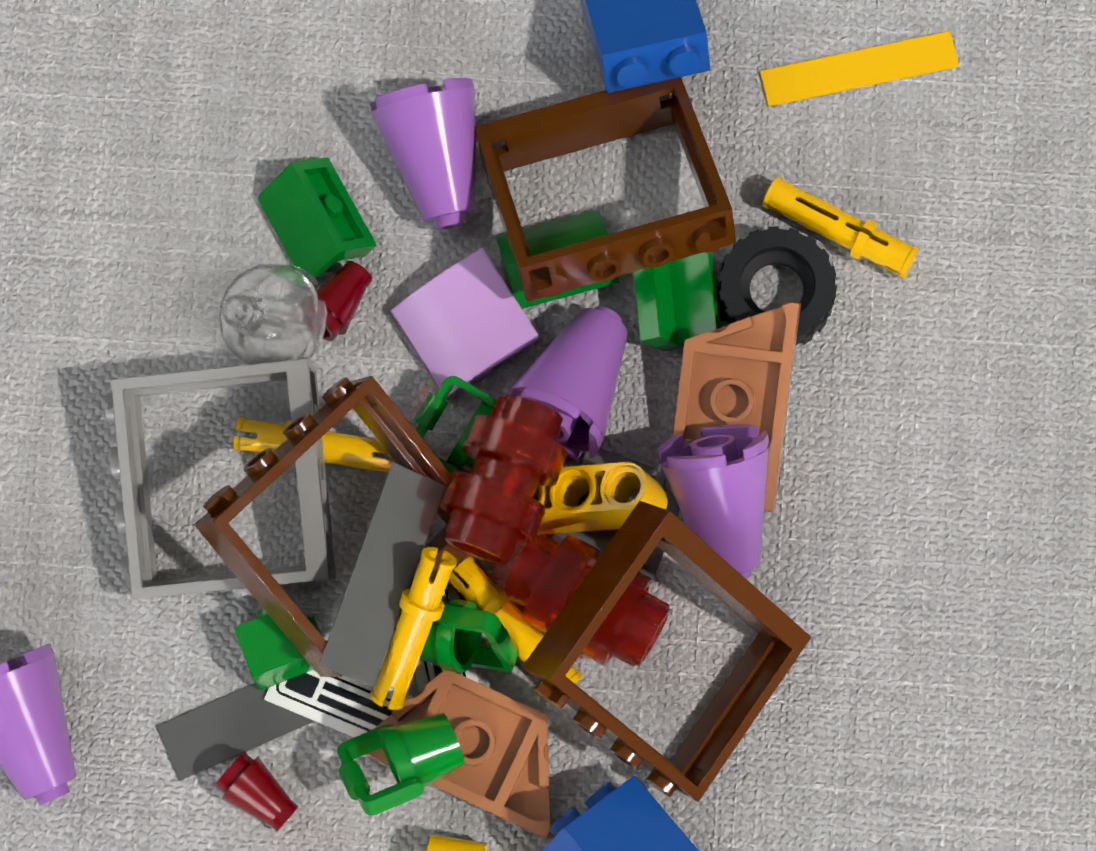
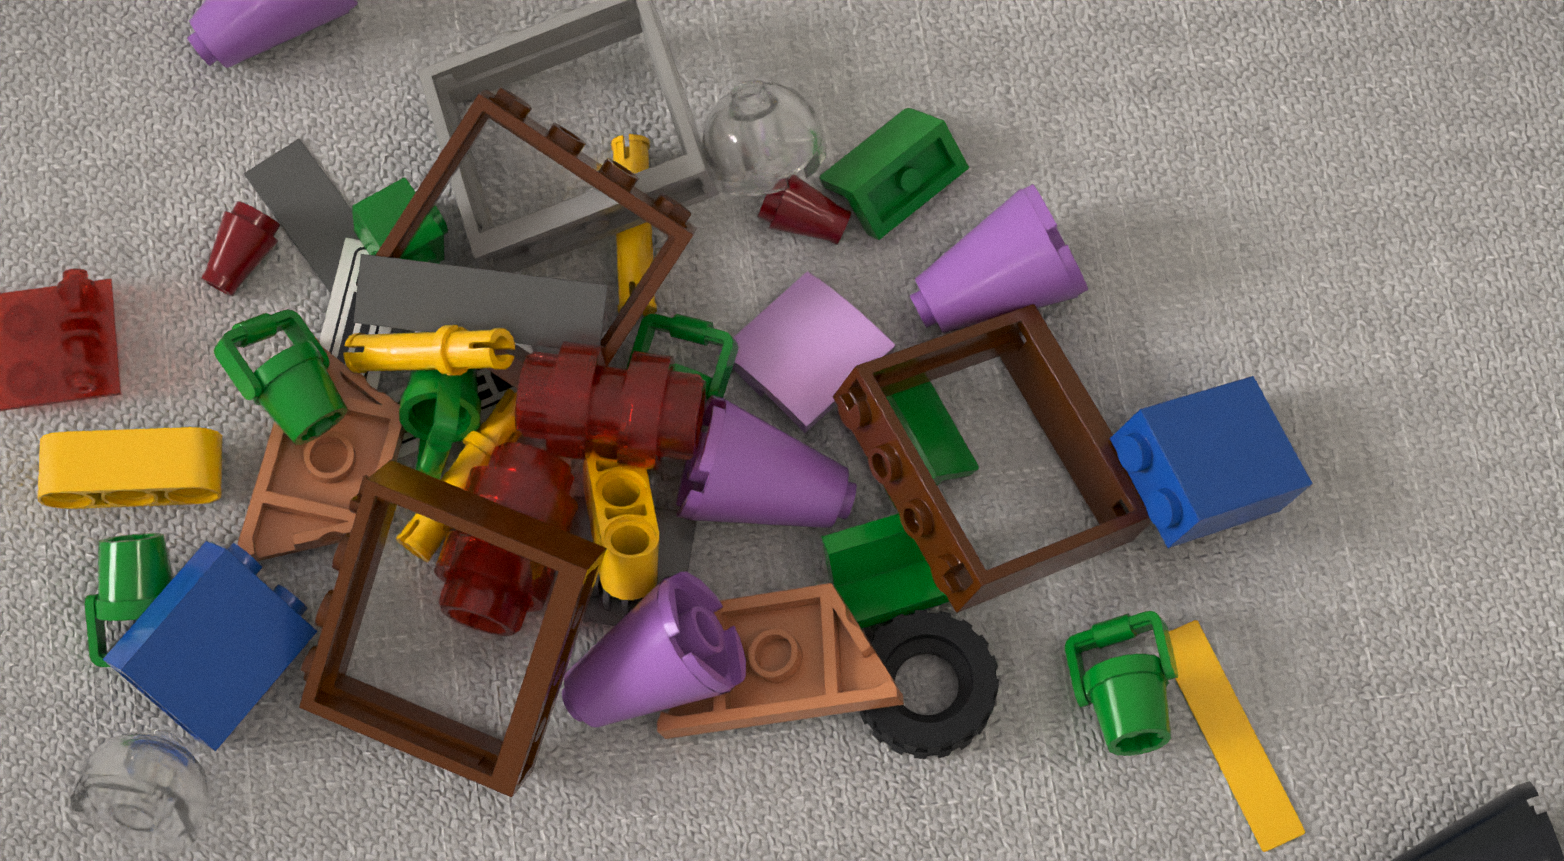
camera: 70 degrees right, 5 degrees down
(823, 132) = (1129, 688): none -> green piece
(859, 236) = (1001, 814): yellow pin -> none

